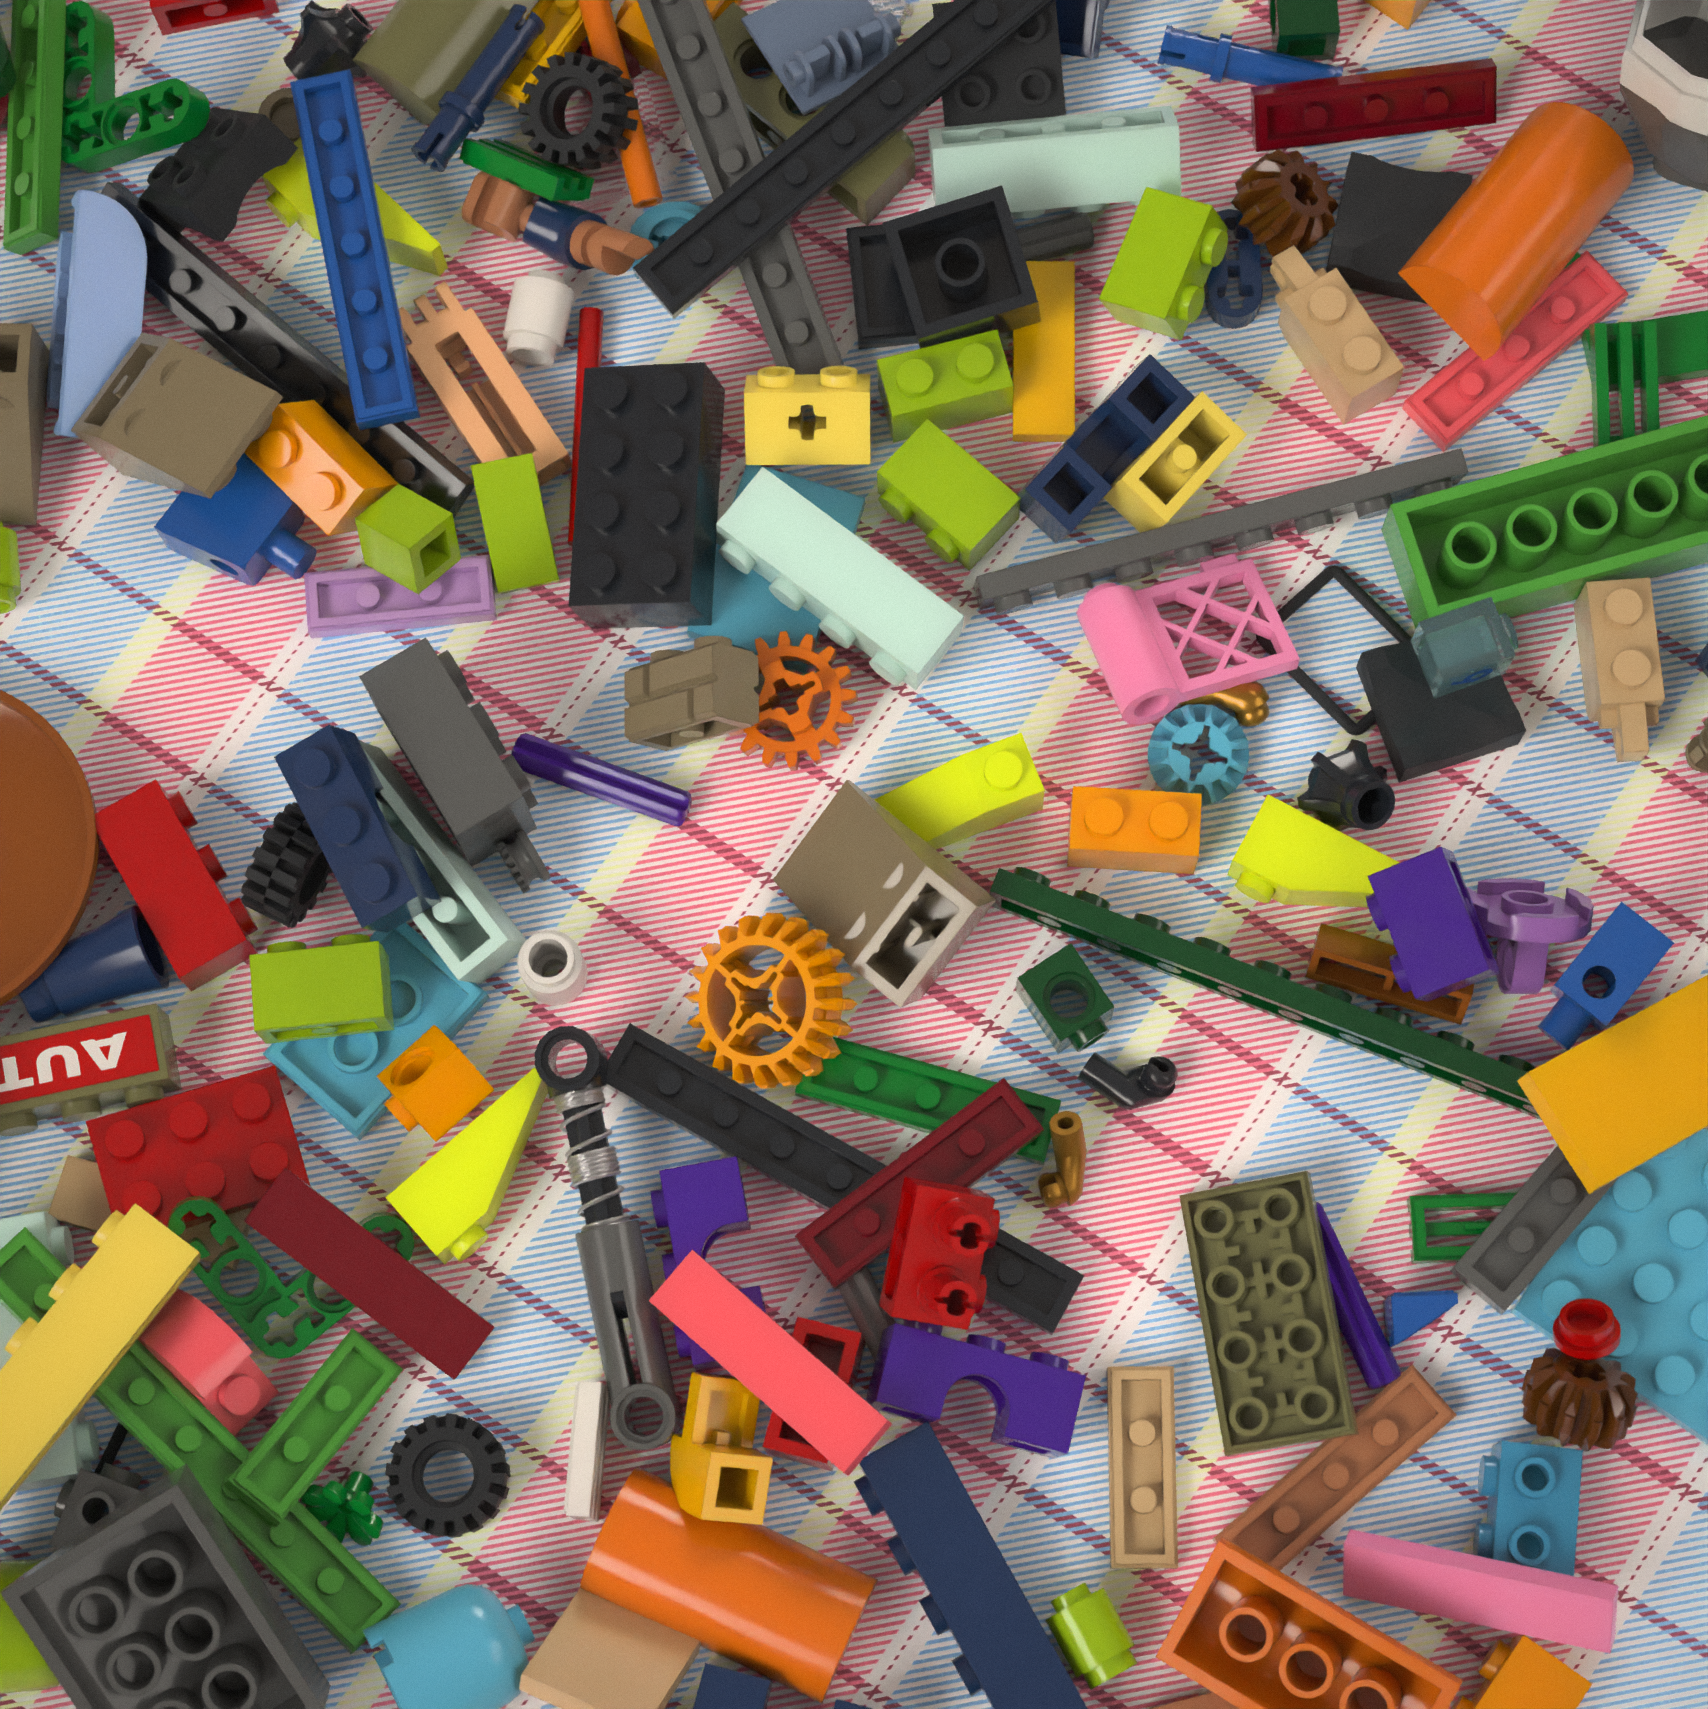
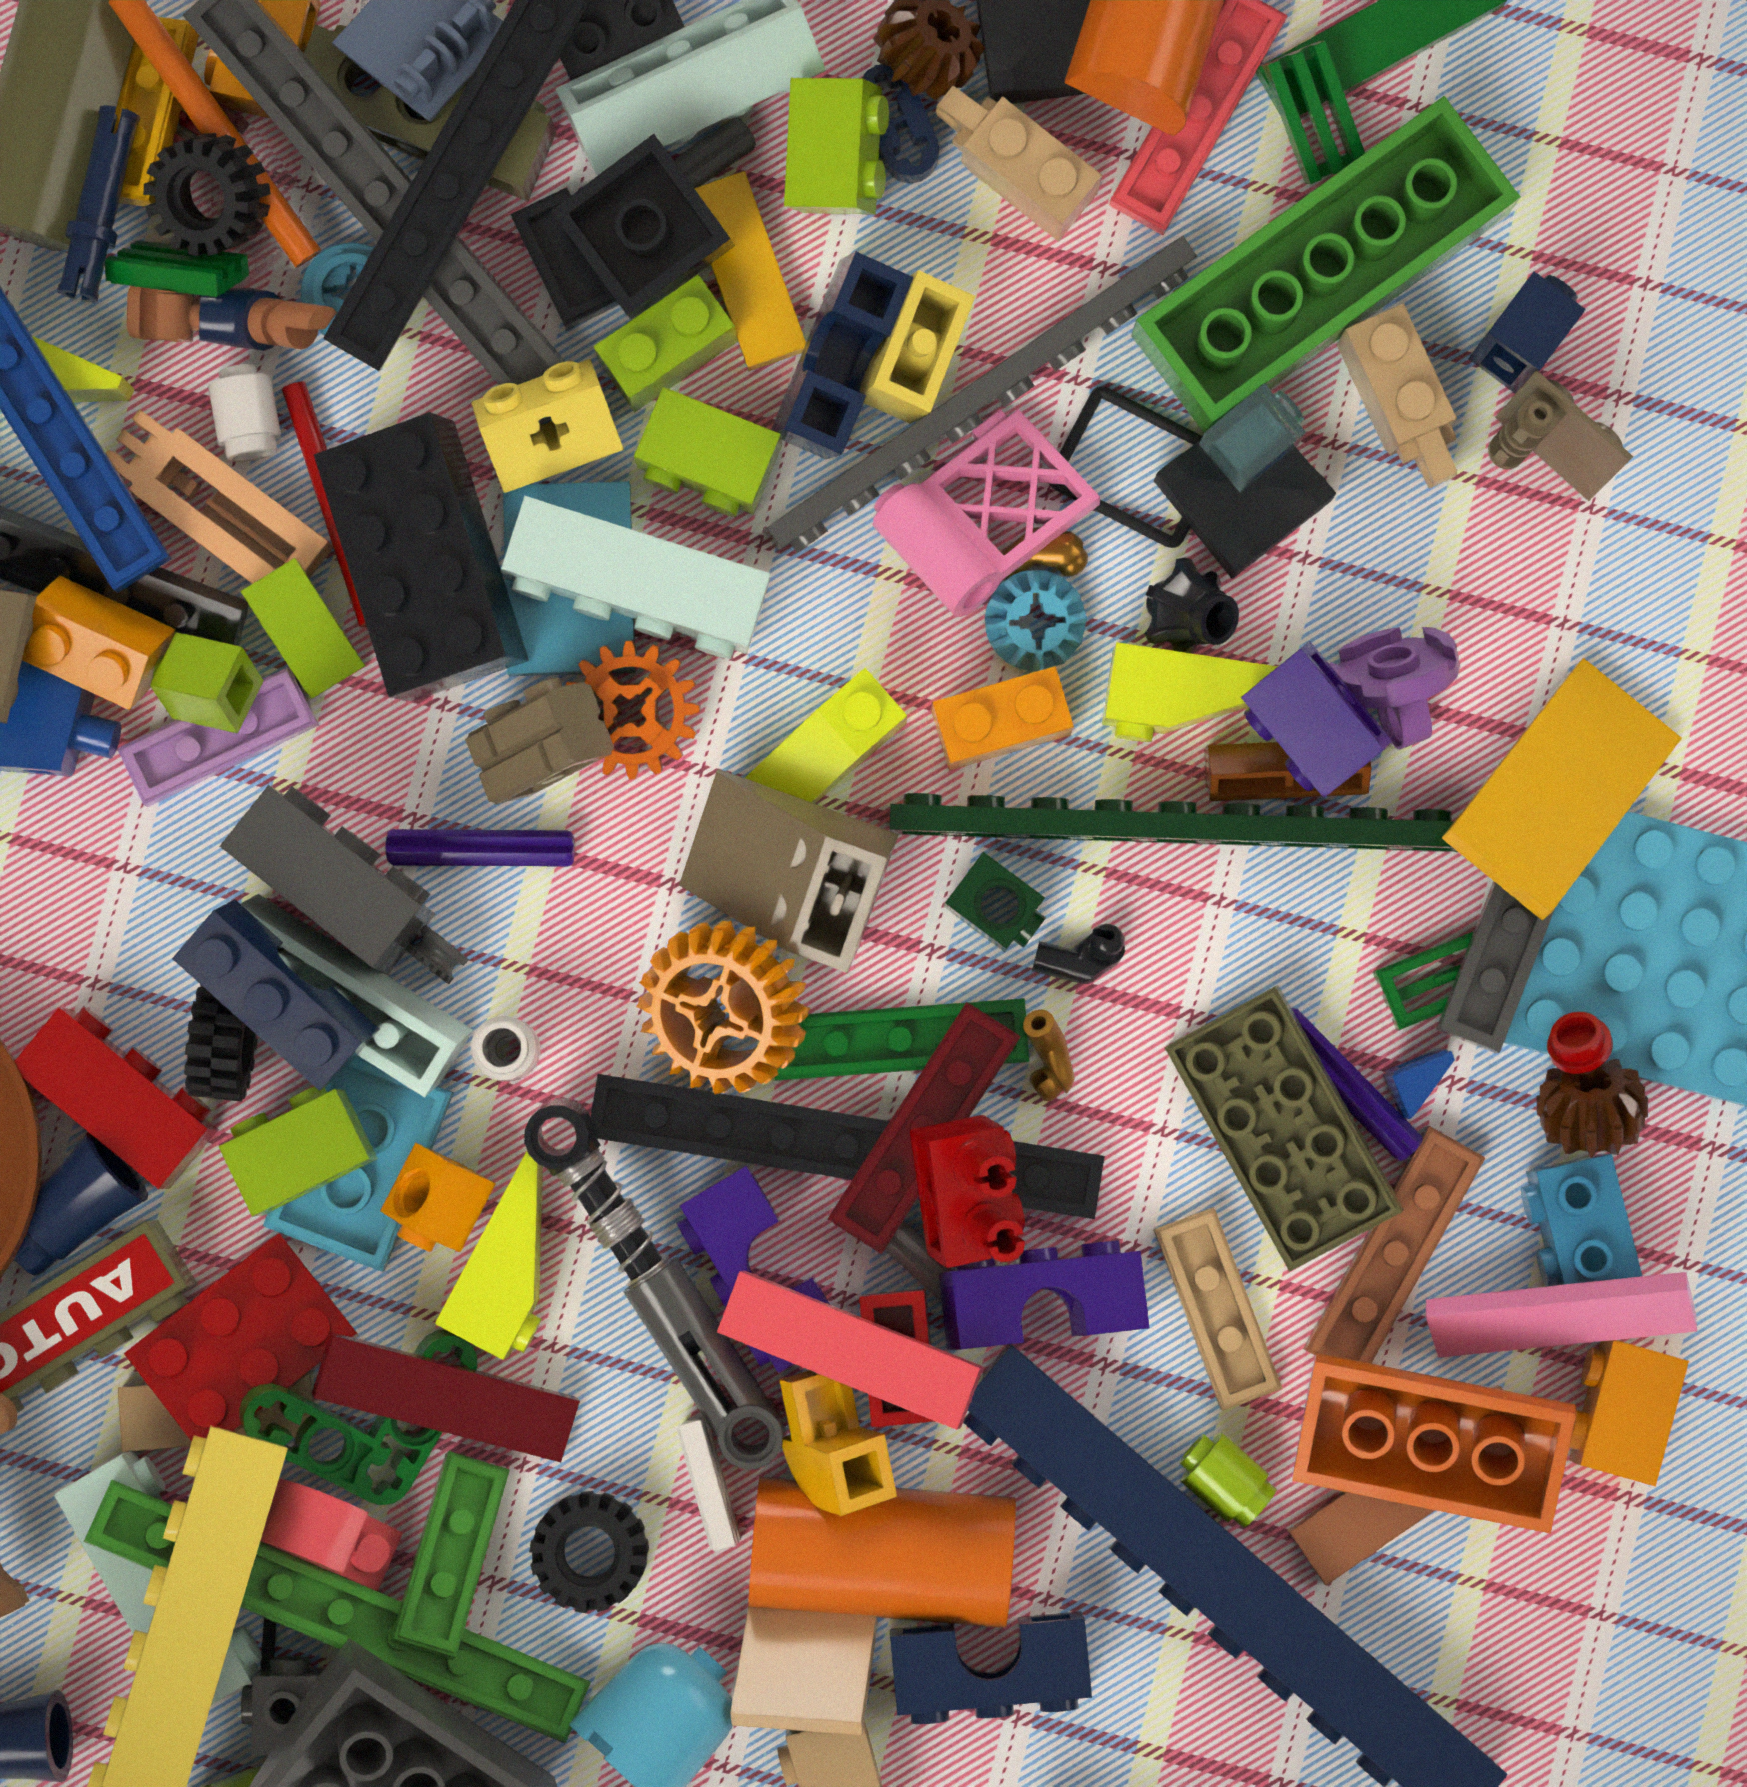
camera: 25 degrees left, 10 degrees up
(346, 1508) = (508, 1615): green plant -> none
(1621, 954) = (1490, 674): blue torso -> none

